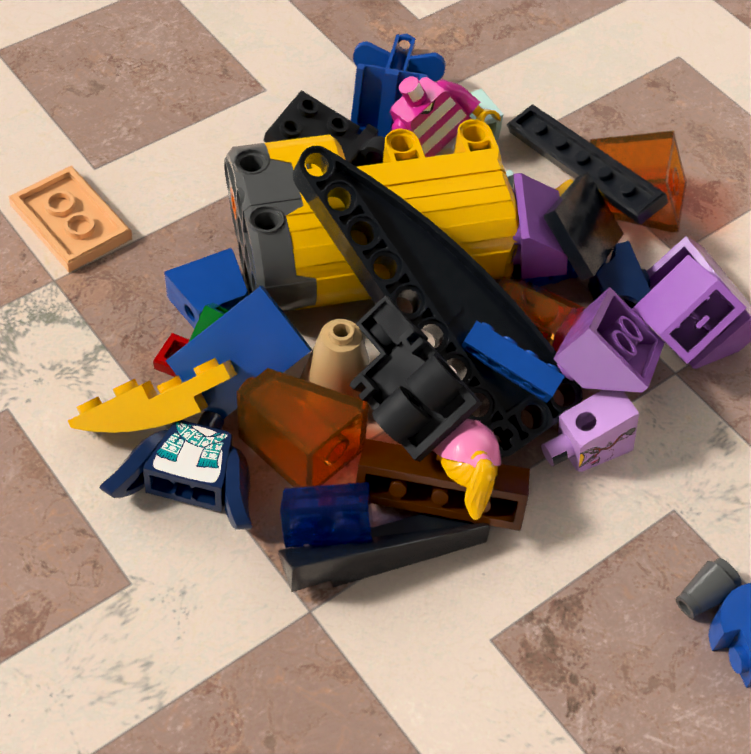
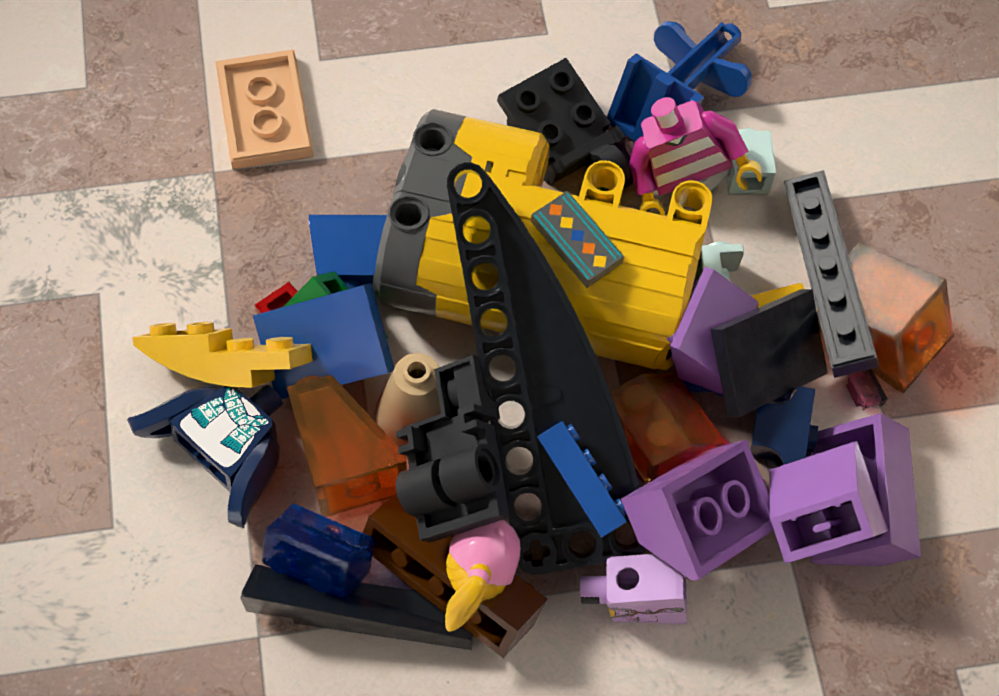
camera: 30 degrees right, 10 degrees up
(417, 187) = (577, 239): none -> dark grey tile
(651, 237) = (866, 389): none -> clear pink piece

